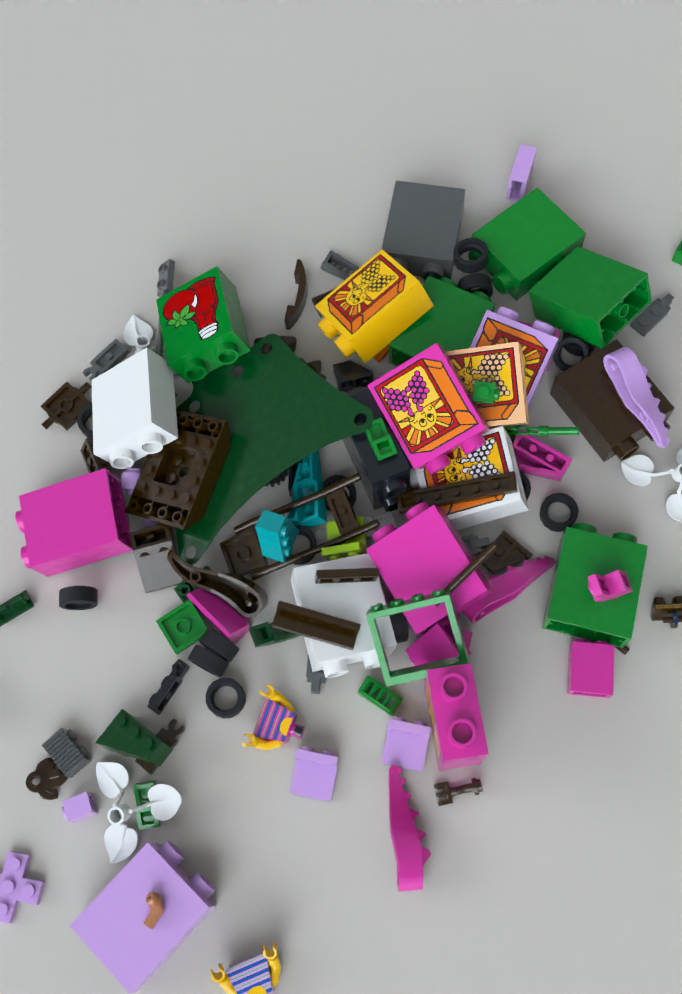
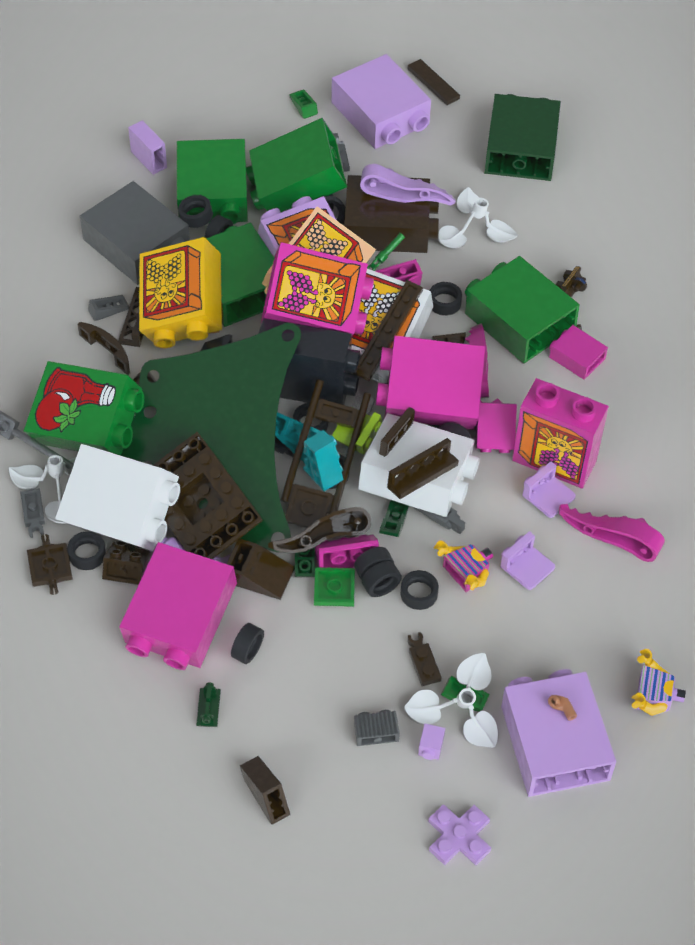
camera: 65 degrees left, 15 degrees down
(50, 779) = (387, 758): dark brown plate -> none
(133, 739) = (408, 664): dark green wedge -> none
(168, 687) = (378, 623): black hinge -> none
(369, 697) = (488, 497): green slope -> none
(380, 440) = (316, 337): green slope -> none
(418, 601) = (446, 428): window -> none
(448, 792) = (611, 469): dark brown hinge -> none
(462, 576) = (463, 351): dark brown bar -> none
(486, 393) = (337, 248): green brick -> none
(609, 586) = (534, 288): dark pink brick -> none

